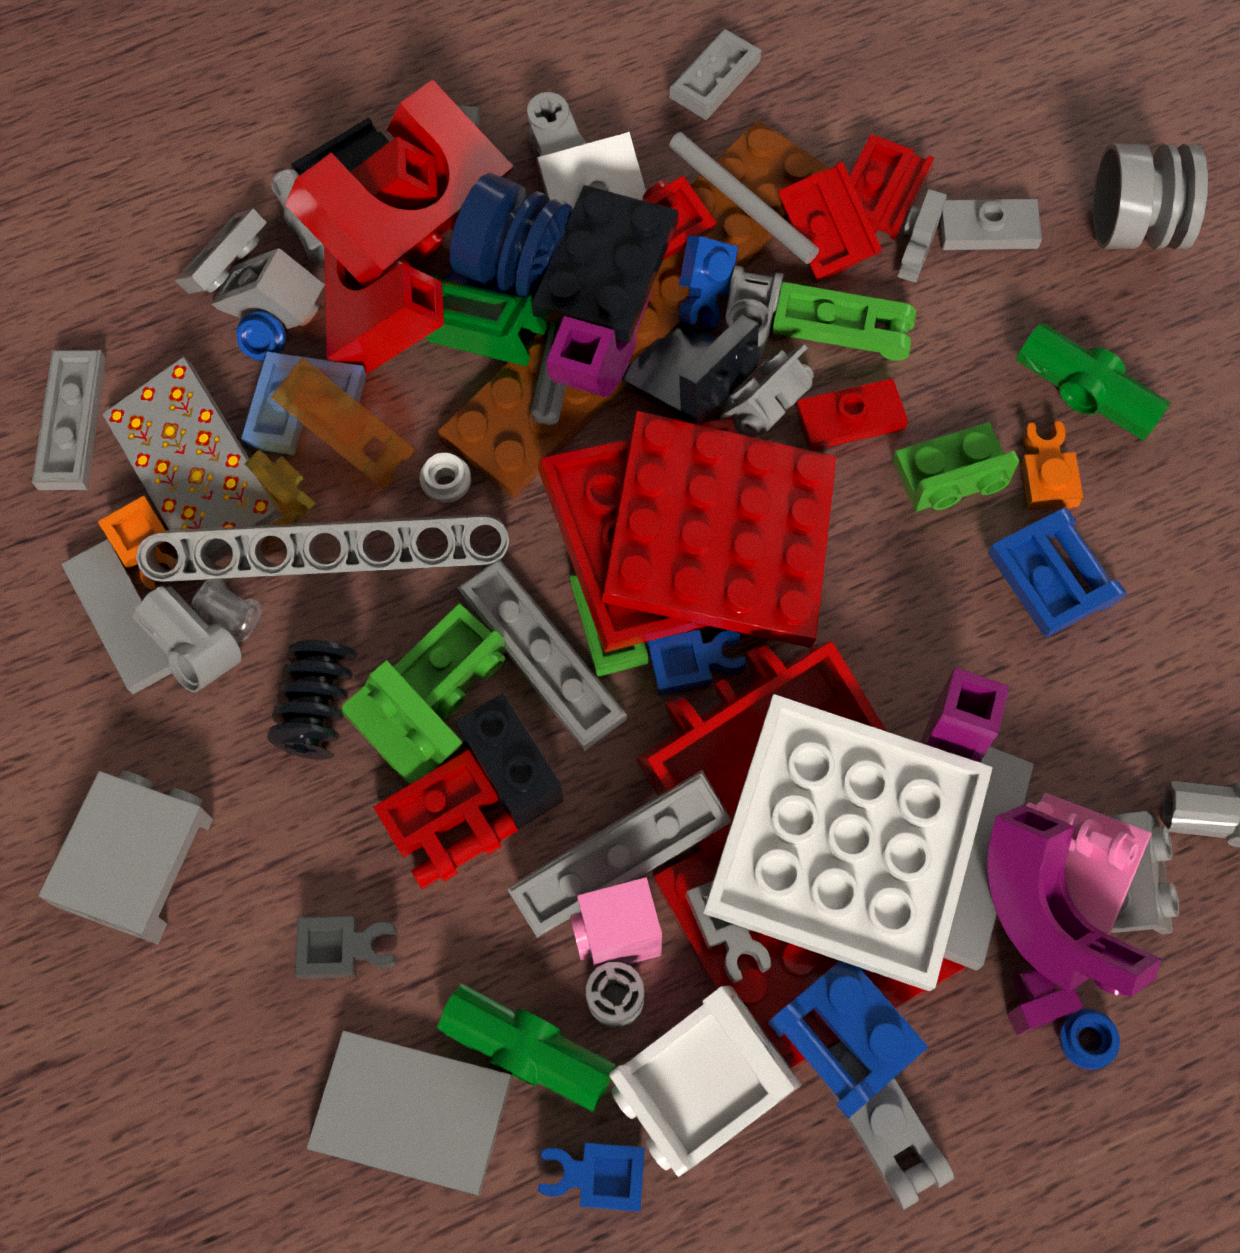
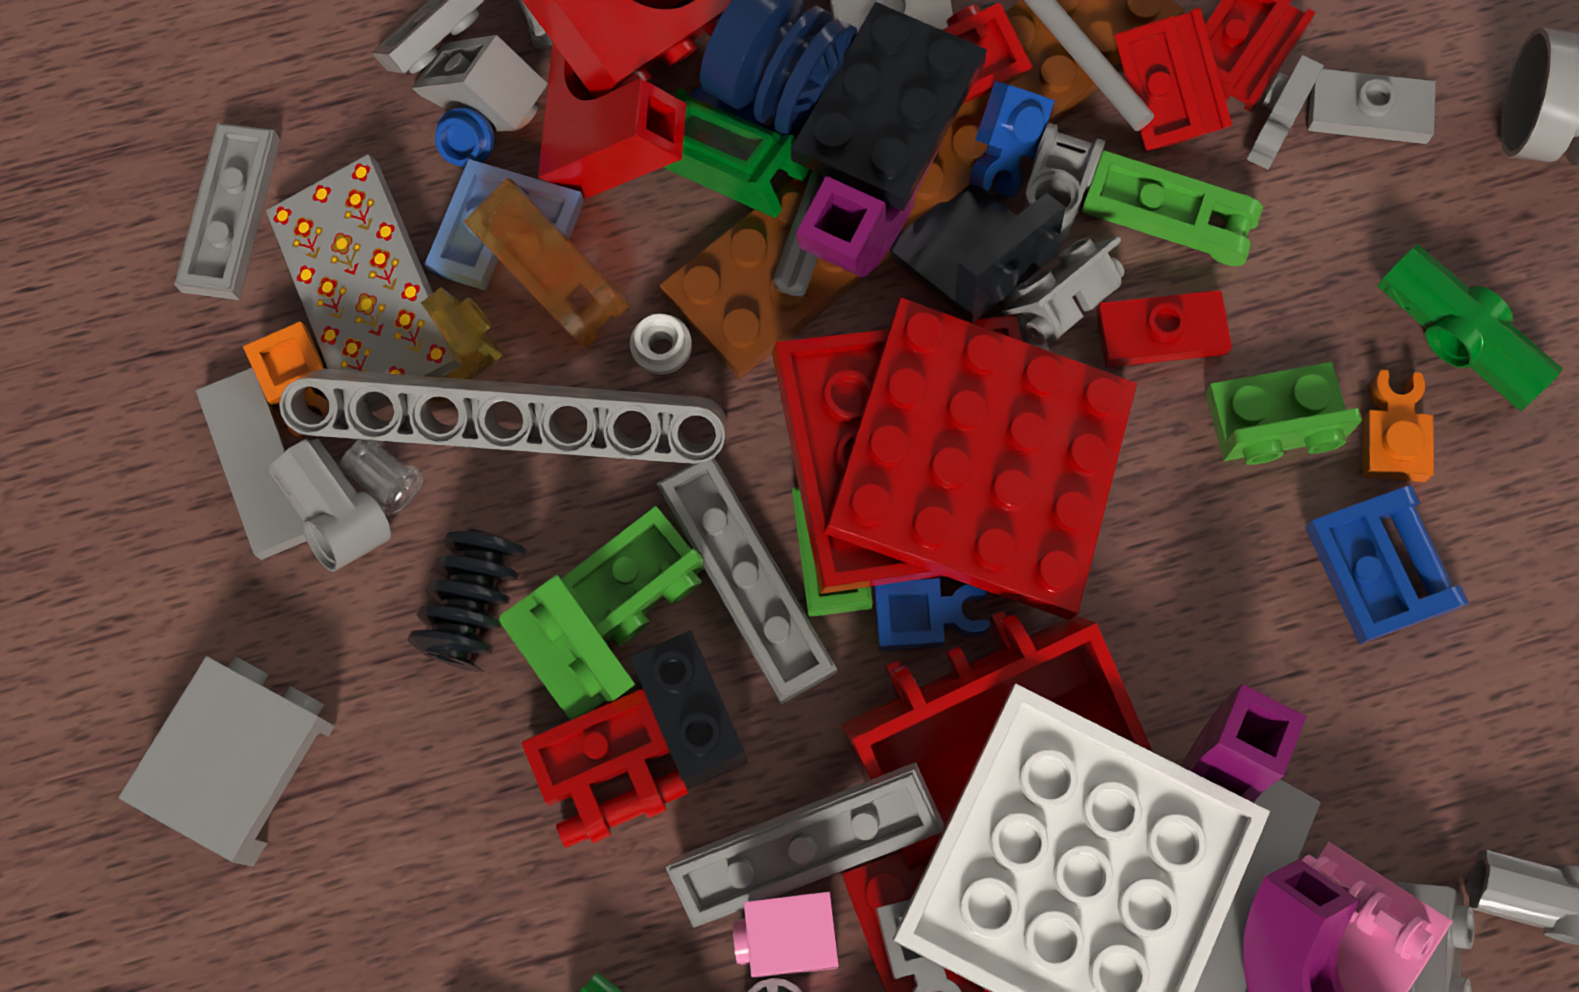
camera: 10 degrees right, 5 degrees up
(333, 945) = (453, 904): dark grey plate -> none

